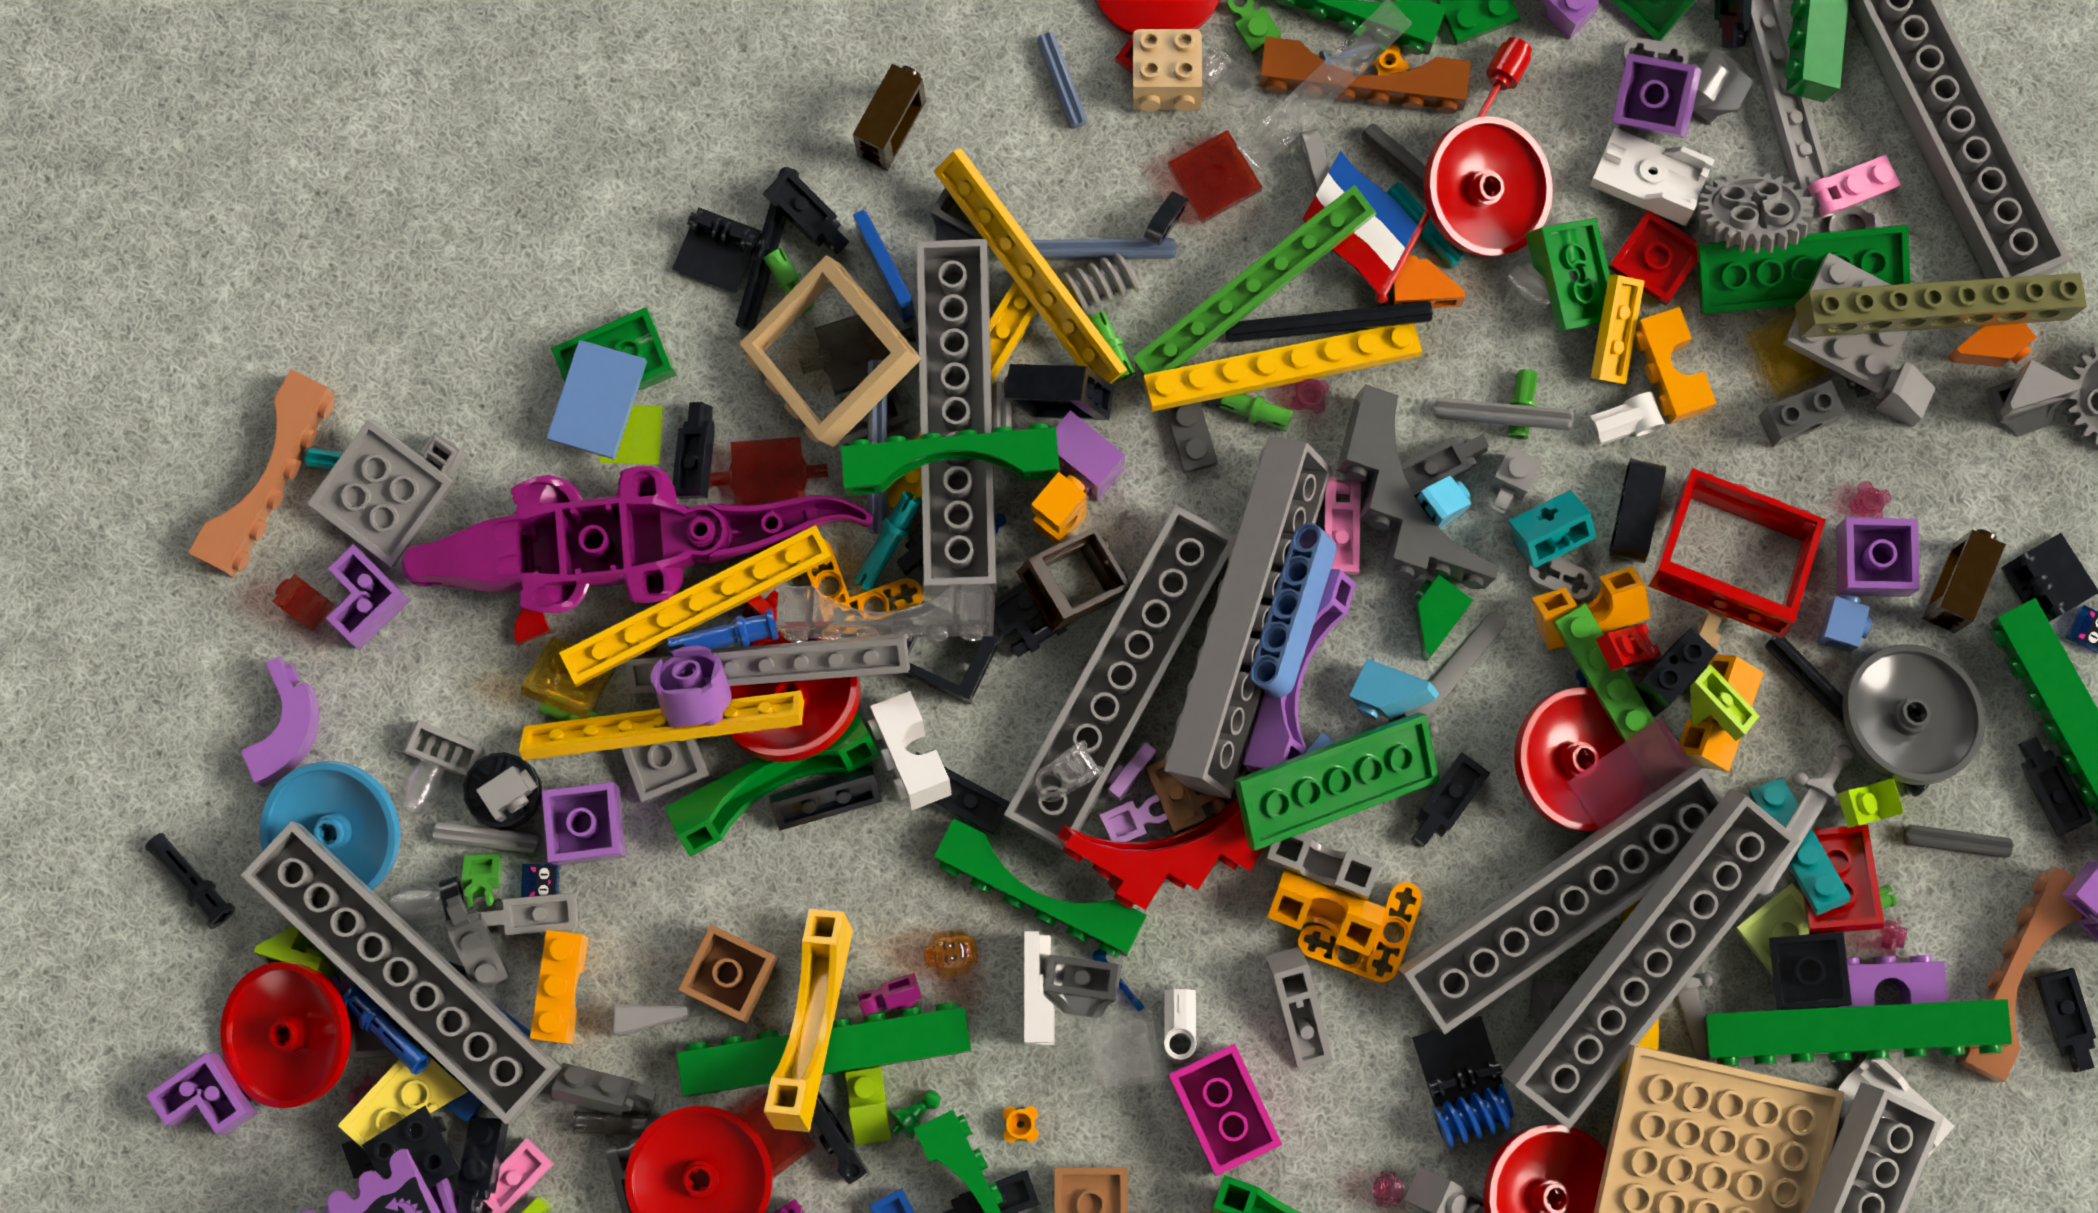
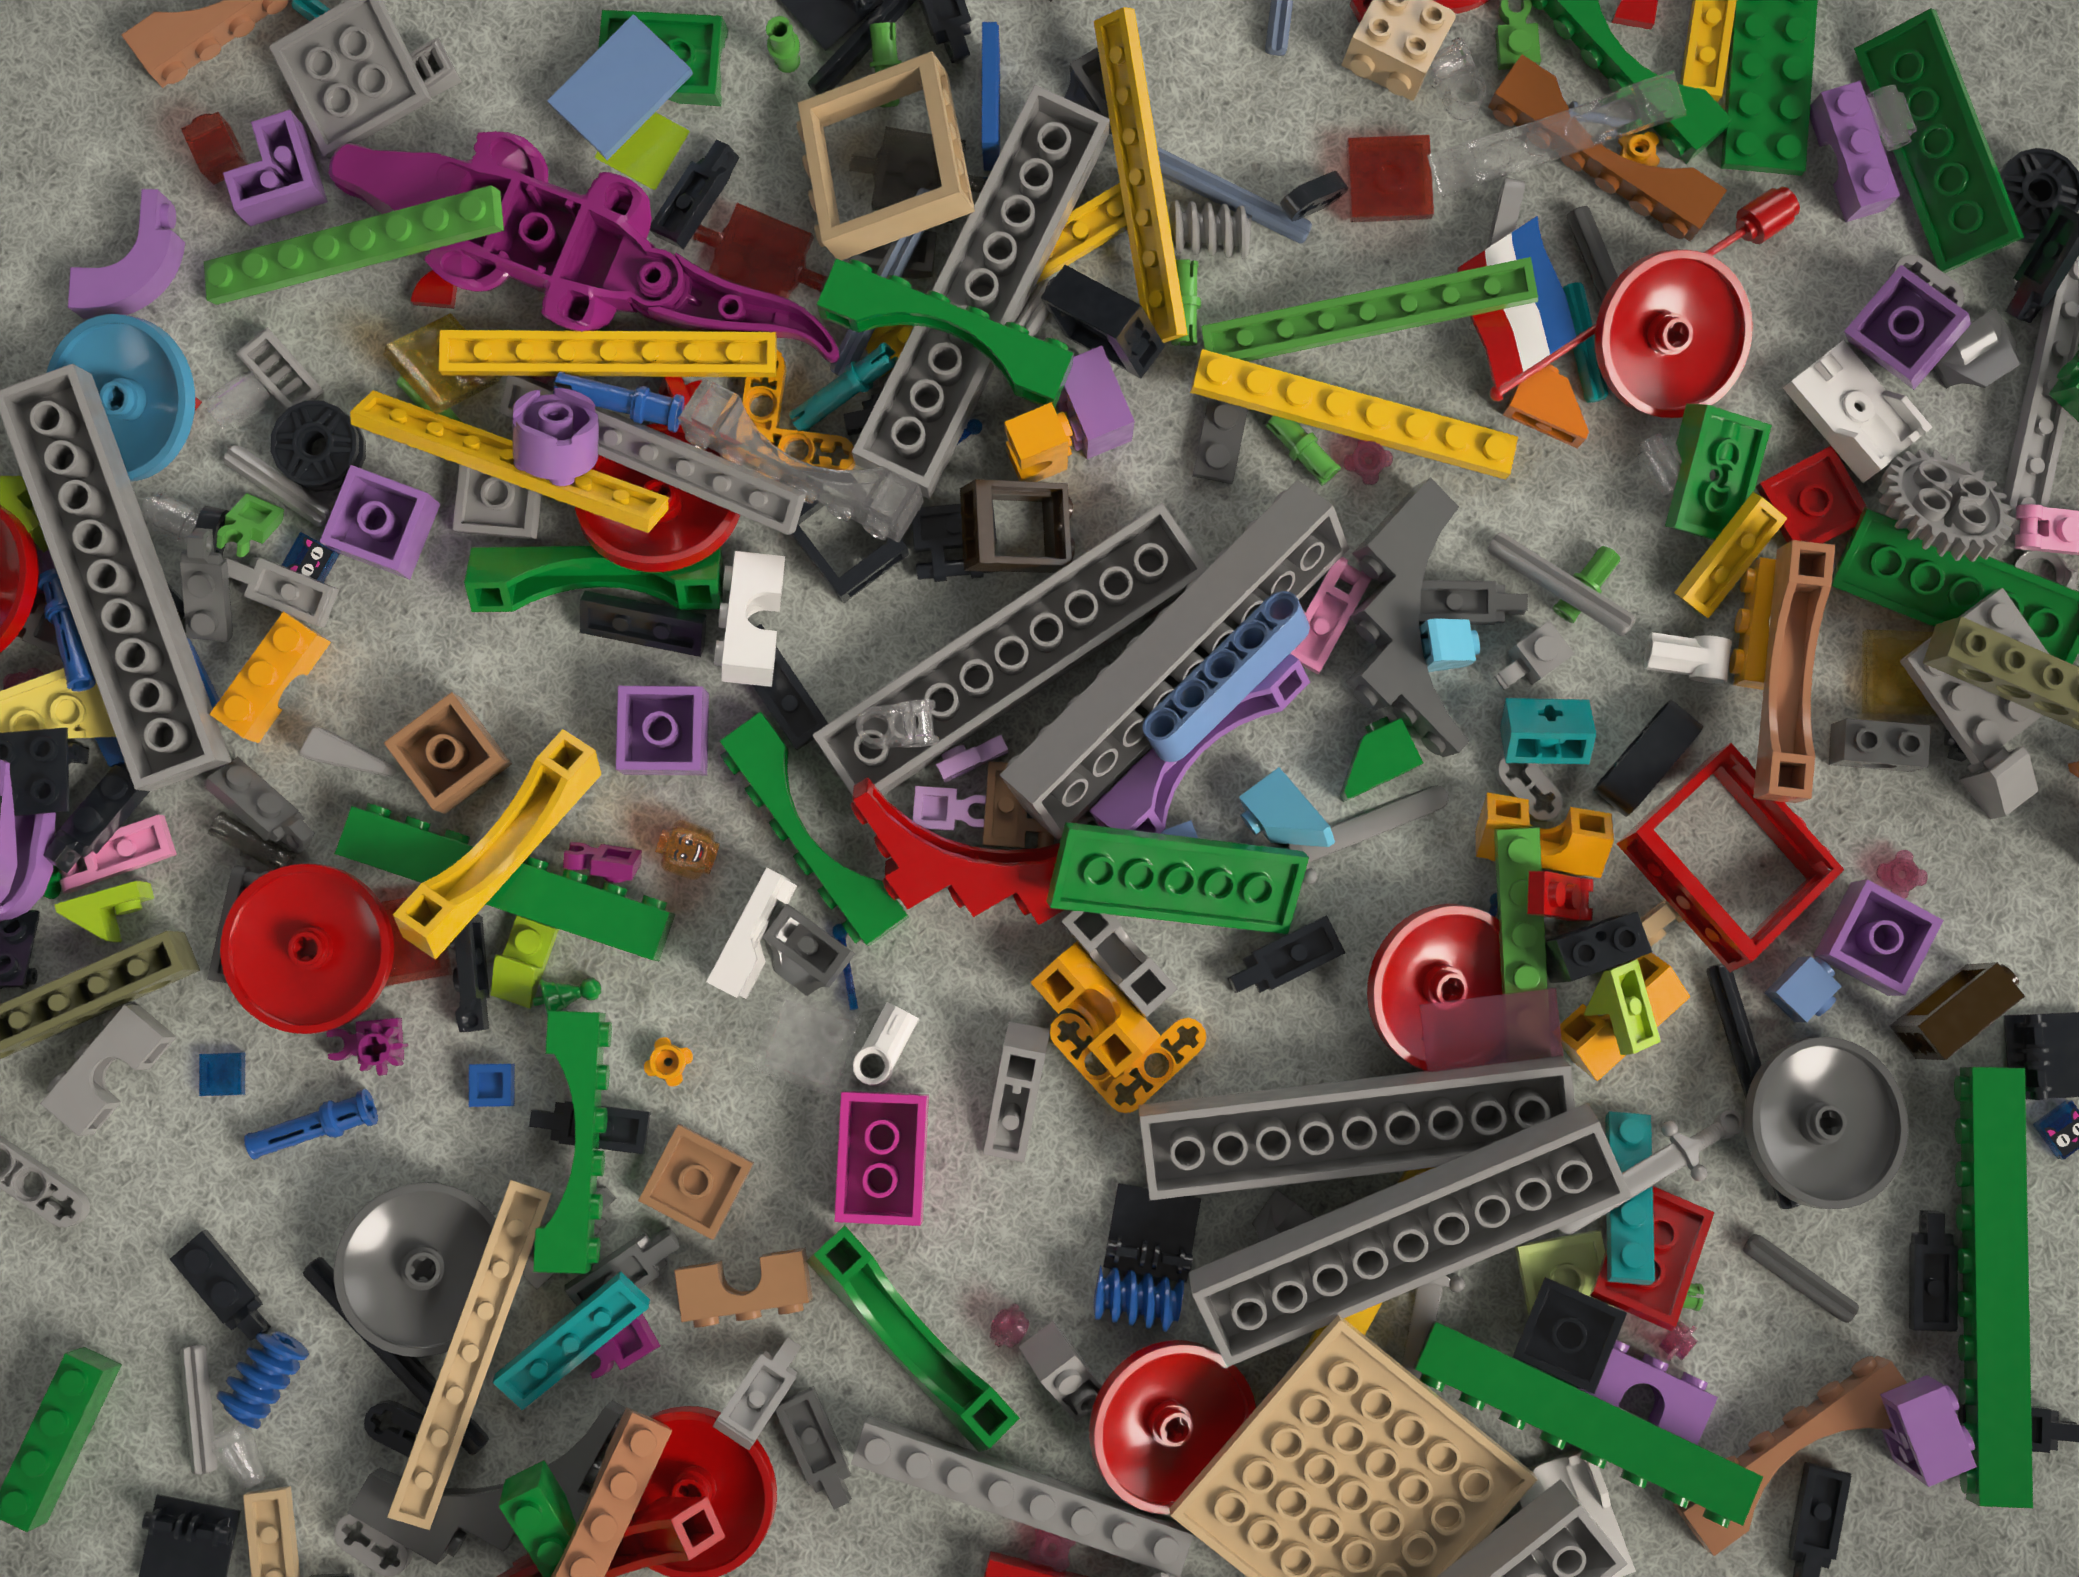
camera: 25 degrees right, 5 degrees up
(455, 623) = (354, 245): none -> bright green plate
(507, 792) = (313, 448): light grey brick -> none
(705, 305) = (783, 44): none -> bright green pin
(885, 871) = (662, 730): none -> medium lavender brick
(1330, 321) = (1430, 393): black axle -> none
(1728, 440) = (1785, 734): none -> nougat arch
(1870, 803) = (1729, 1192): lime slope -> none

